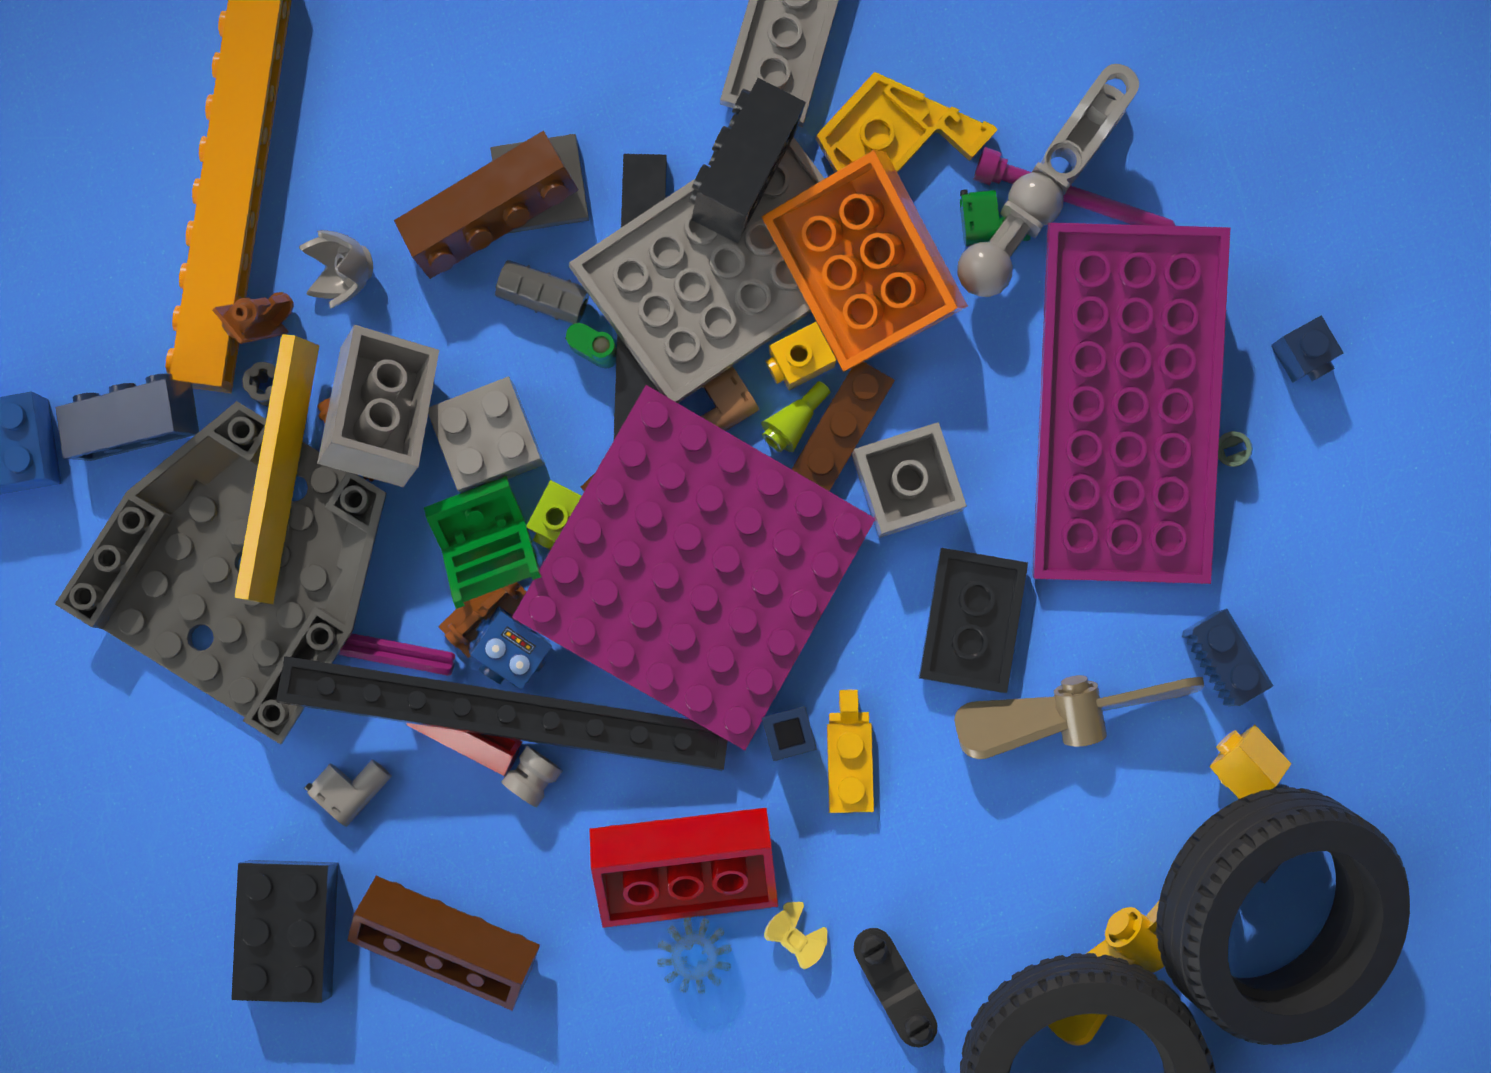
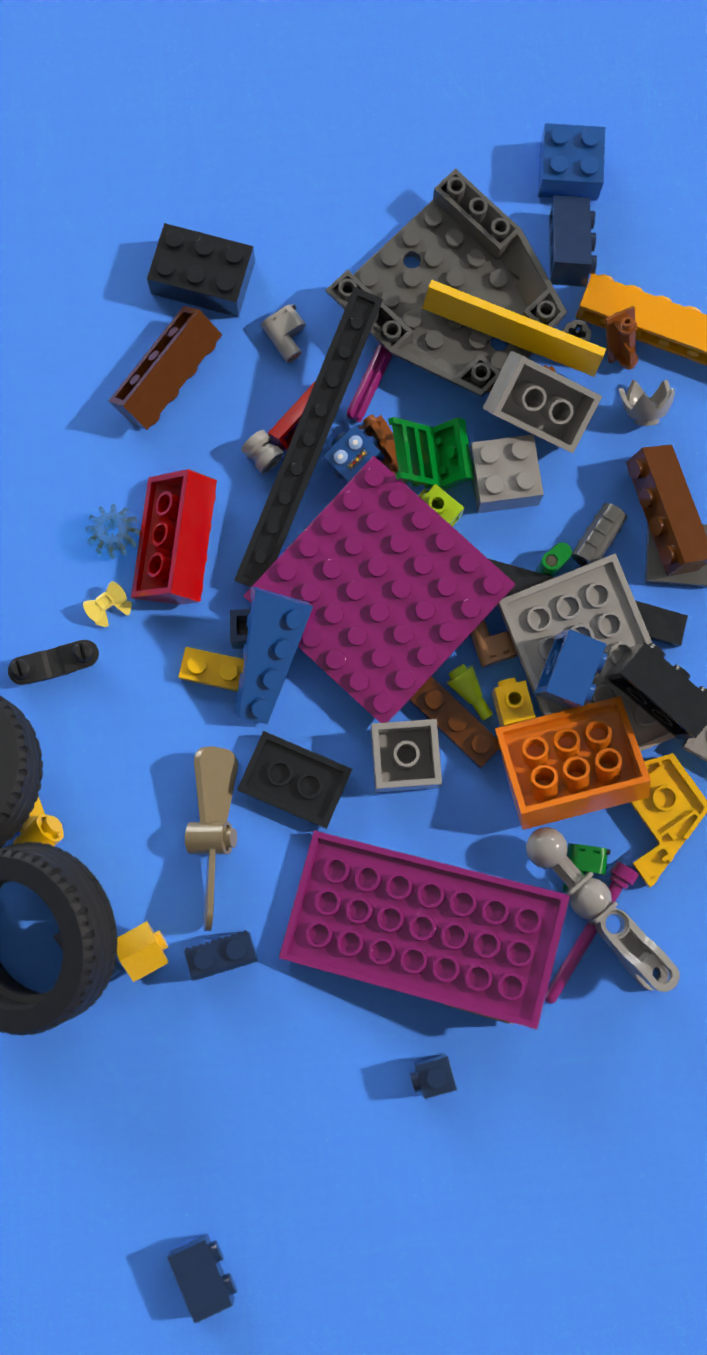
camera: 95 degrees right, 5 degrees down
(750, 284) = (571, 669): none -> blue brick
(805, 692) = (272, 640): none -> blue wing
(1232, 439) = (381, 1001): sand green hinge -> none

